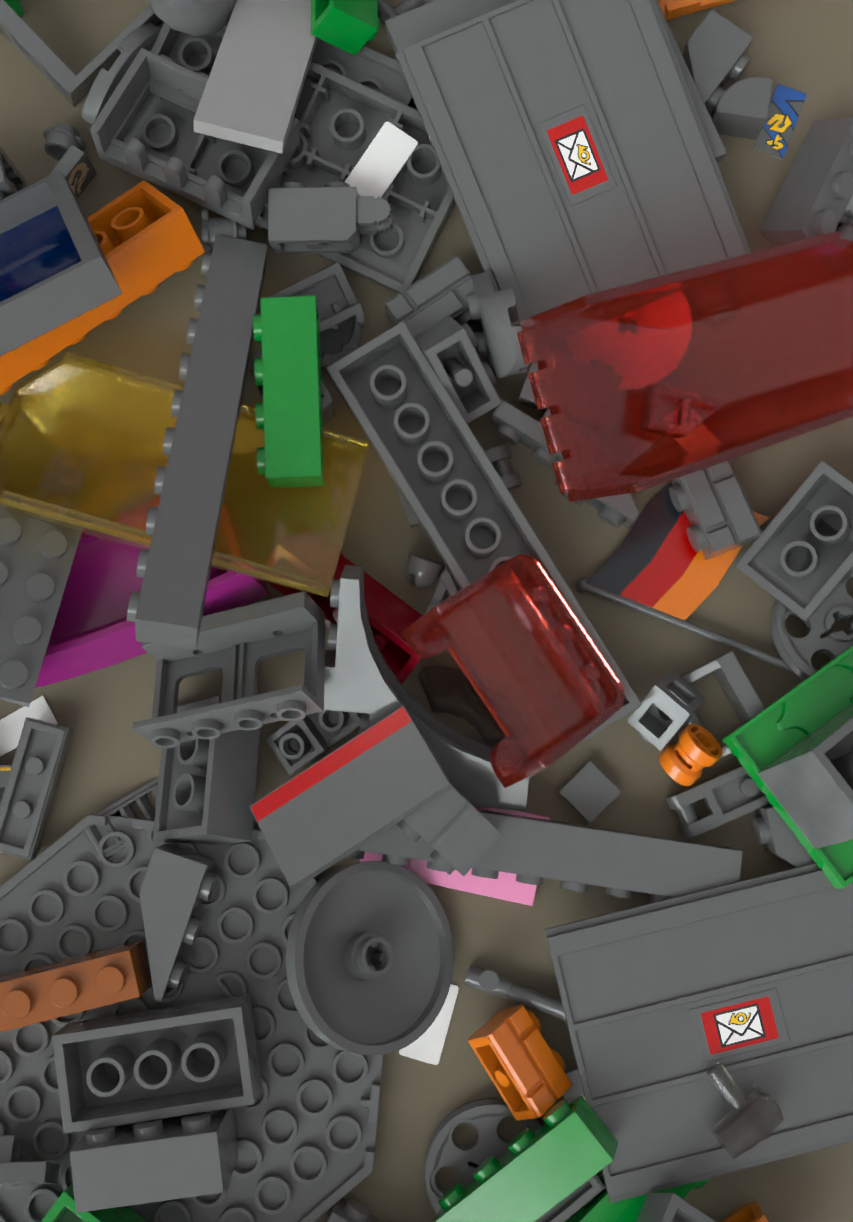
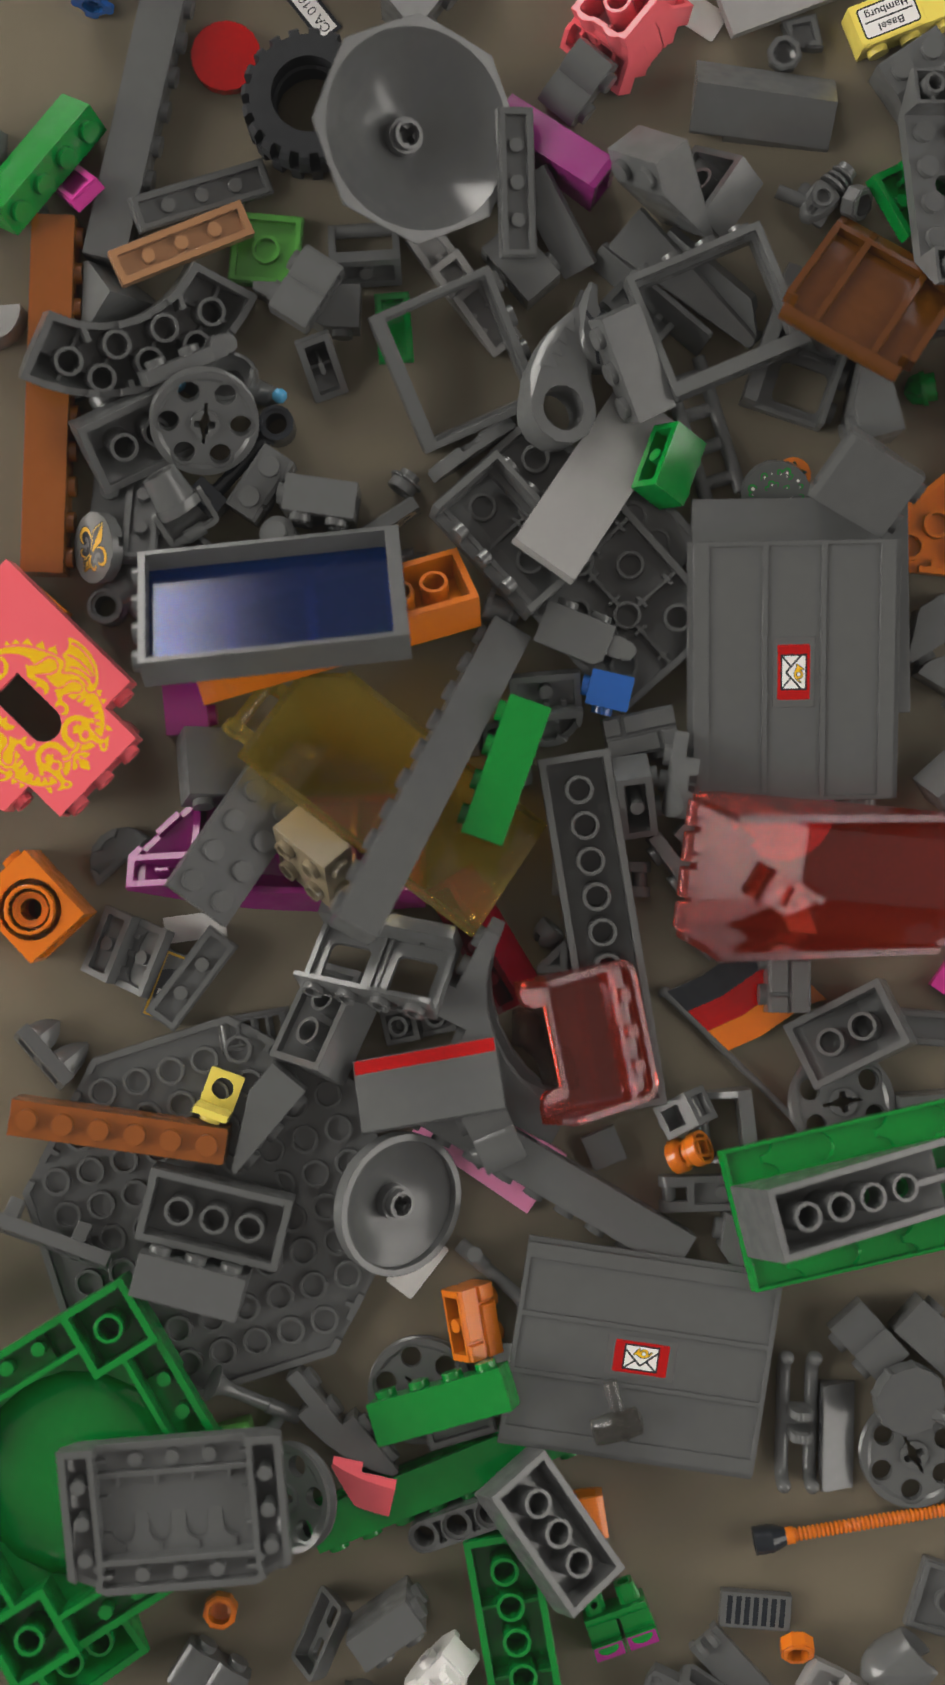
camera: 20 degrees right, 5 degrees up
(94, 573) = (312, 855): none -> dark tan brick
(108, 931) = (215, 1109): none -> light yellow bracket
(377, 268) = (607, 691): none -> blue brick
(381, 161) = (644, 605): white sticker -> none

